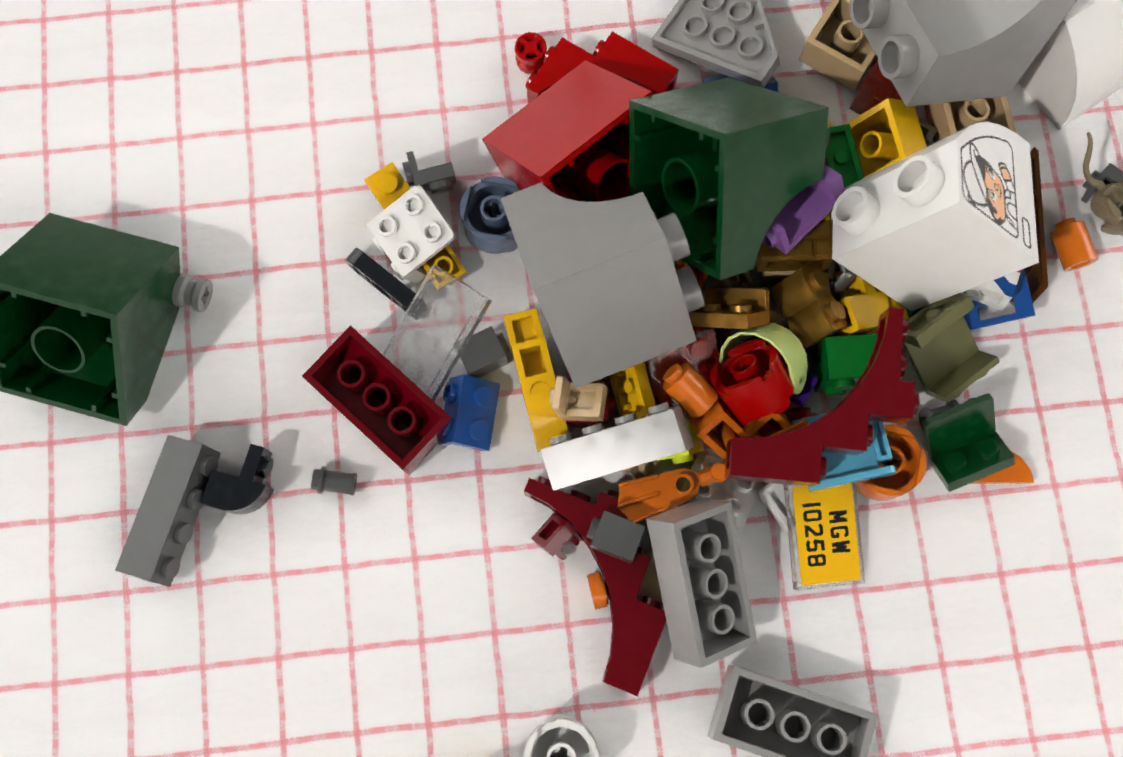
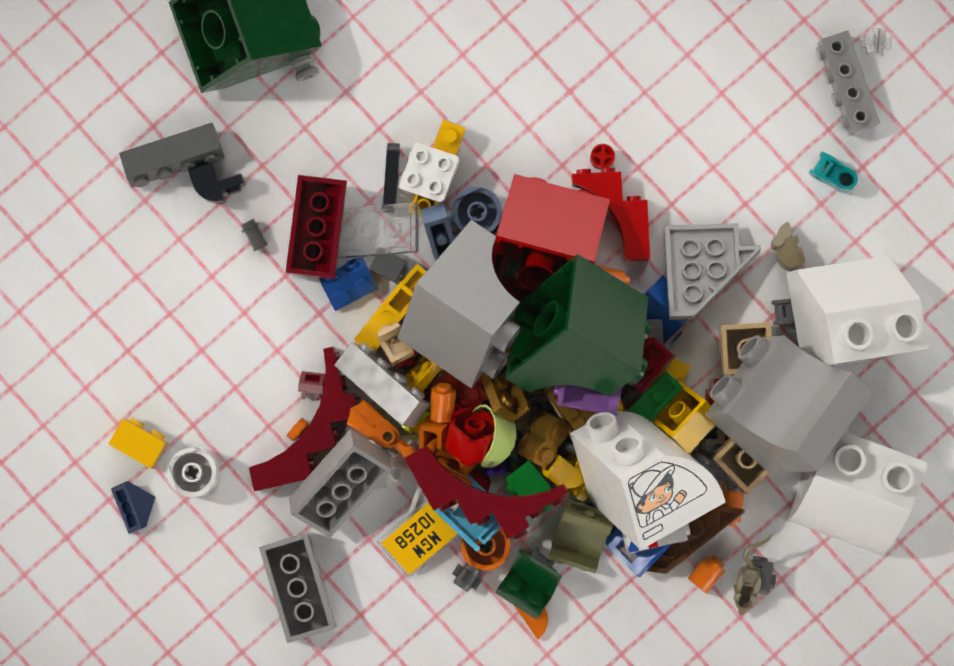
camera: 60 degrees right, 10 degrees up
(435, 178) = (472, 160): dark grey bracket -> none
(487, 267) = (438, 228): none -> sand blue brick
(615, 536) = (331, 418): dark grey brick -> none
(908, 511) = (467, 577): none -> dark grey gear

